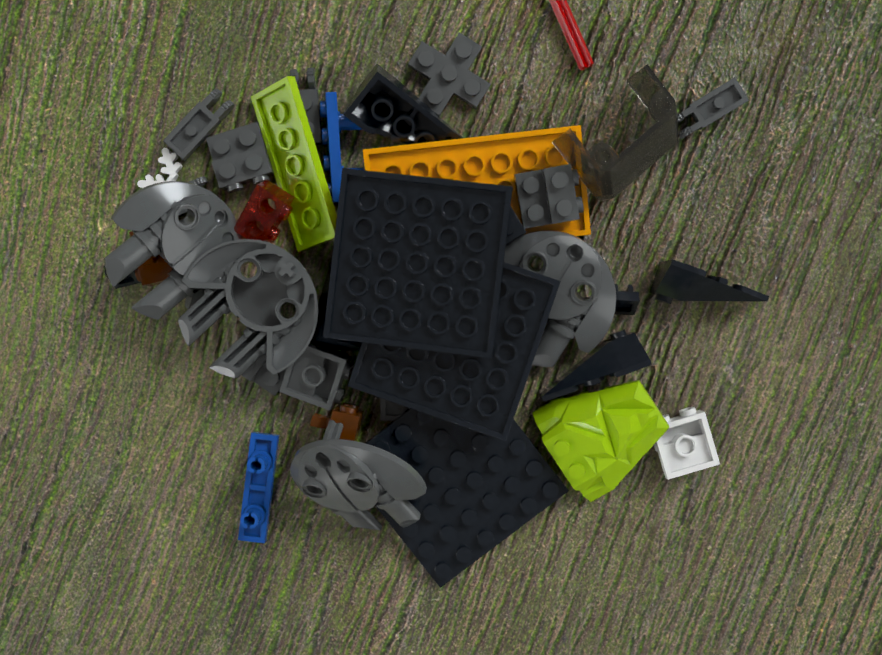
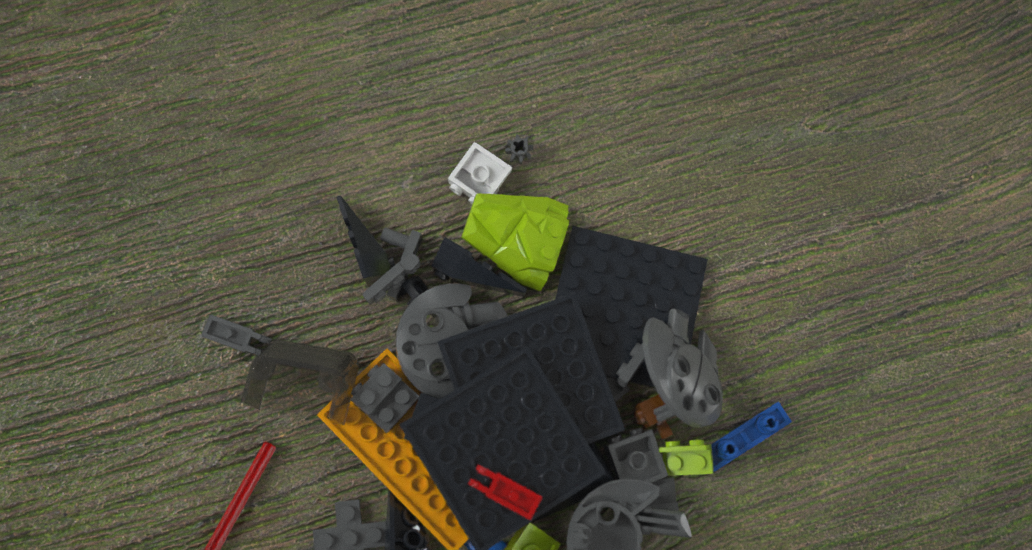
camera: 135 degrees left, 10 degrees down
(279, 421) = (687, 459): none -> lime bracket
(374, 235) = (508, 493): none -> red hinge
(397, 431) = (628, 370): none -> dark grey hinge
(651, 287) = (393, 277): none -> dark grey hinge
(667, 329) = (409, 243): none -> dark grey piece
(685, 503) = (520, 155): none -> dark grey gear

